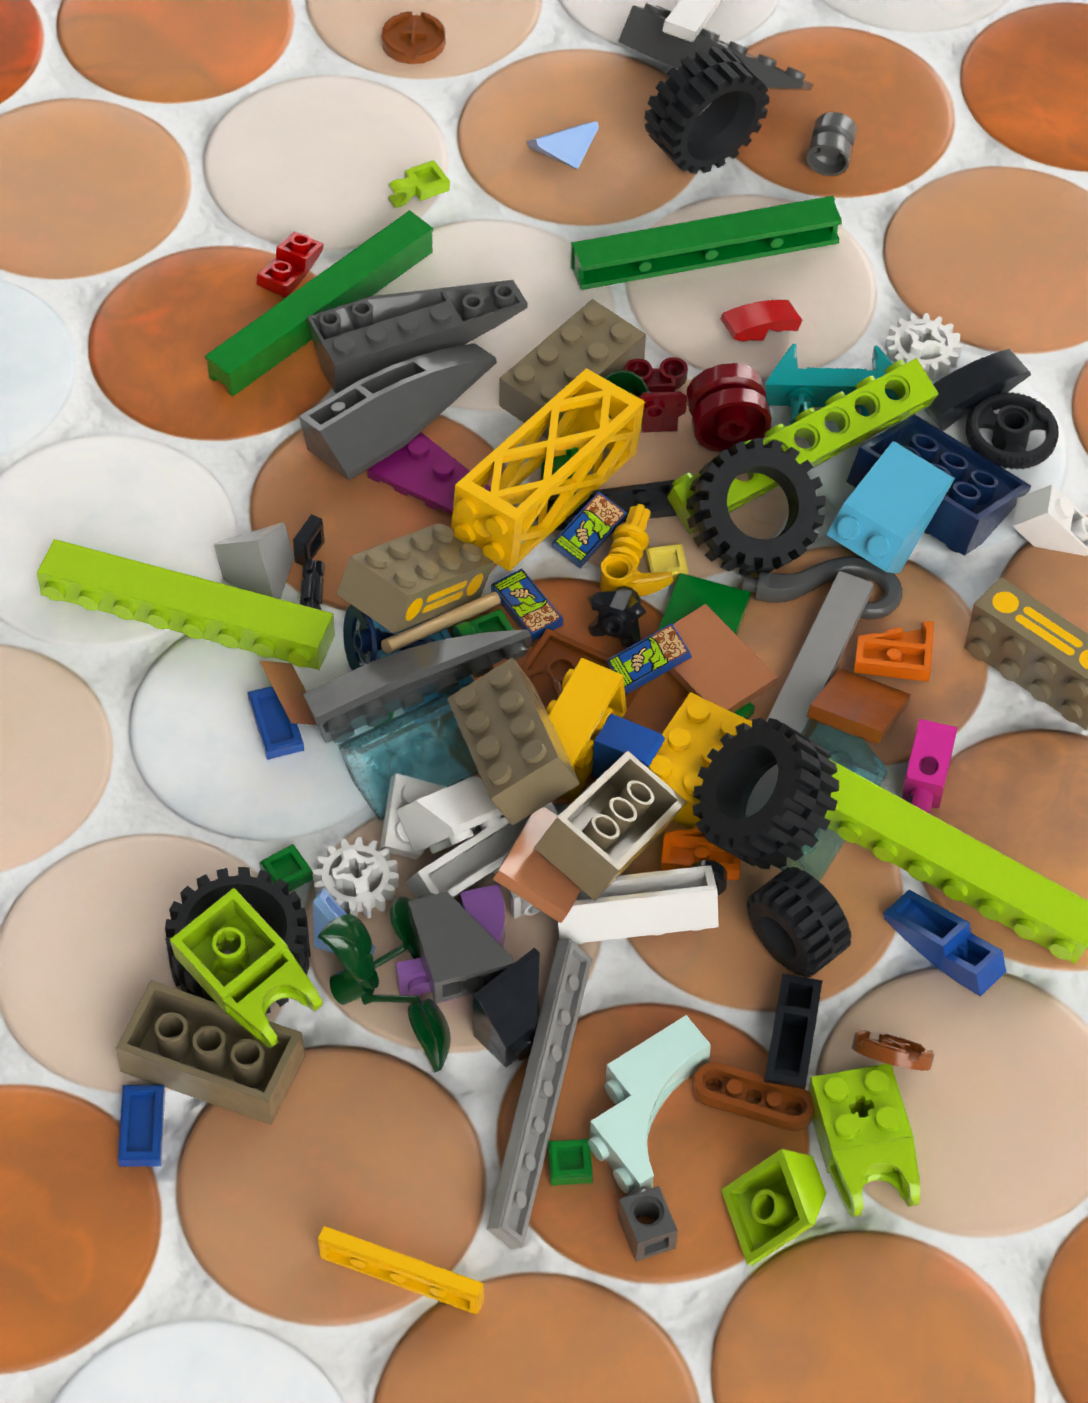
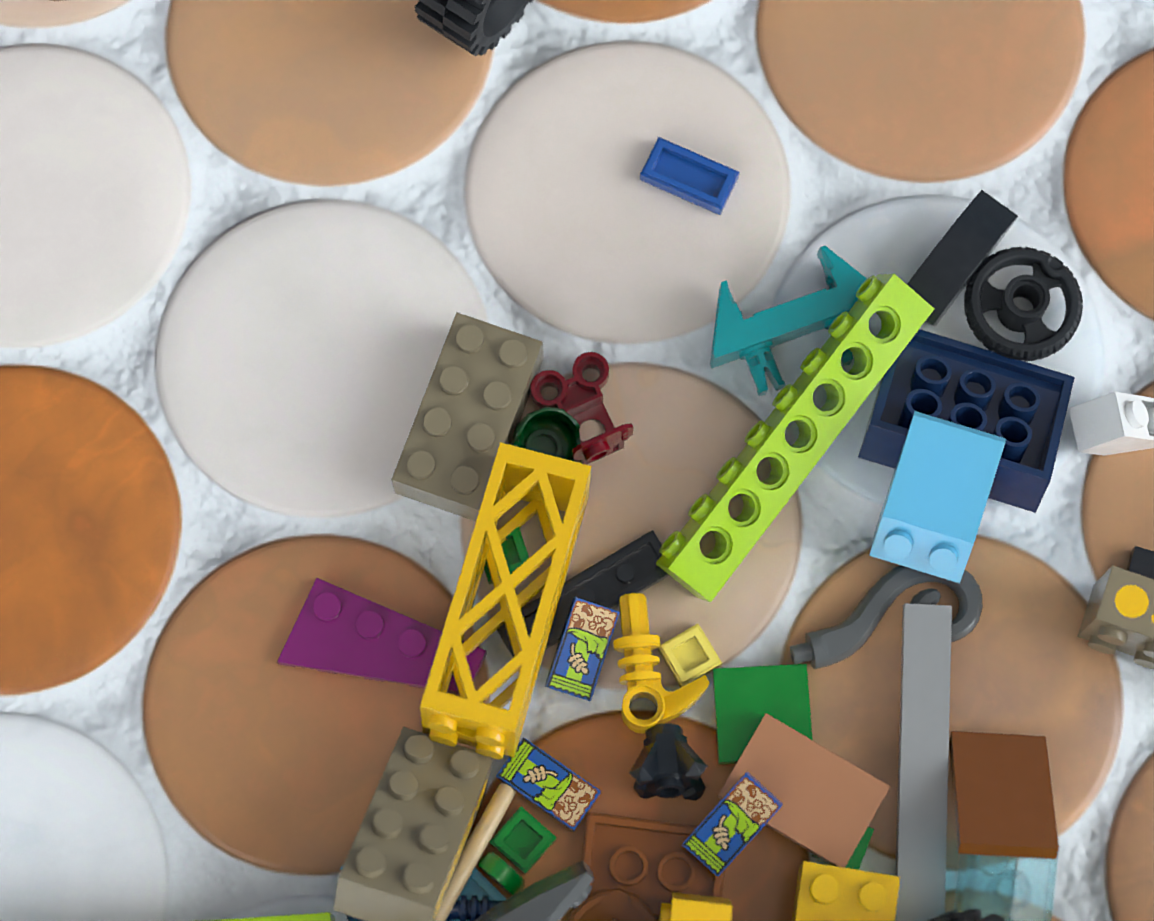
camera: 20 degrees left, 20 degrees up
(257, 560) = (202, 856): light grey slope -> none
(292, 263) = (51, 379): red slope -> none
(308, 540) = (251, 801): black tile -> none
(313, 584) = (283, 870): black axle -> none
(350, 279) = (116, 431): green tile -> none
(390, 407) = (275, 562): dark grey wedge -> none
(399, 326) = (241, 431): dark grey wedge -> none
(422, 180) = (165, 189): lime plate -> none
(566, 145) = (320, 57): light blue slope -> none
(705, 242) = (552, 156): green tile -> none
(717, 527) = (732, 545): black tyre -> none
(728, 406) = (684, 413): dark red wheel -> none
(756, 318) = (663, 247): red slope -> none
(800, 288) = (689, 175): none -> blue tile
(896, 653) = (1010, 684): orange wing -> none
(927, 341) = (856, 216): white gear -> none
(929, 764) = (1108, 832): dark pink torso -> none

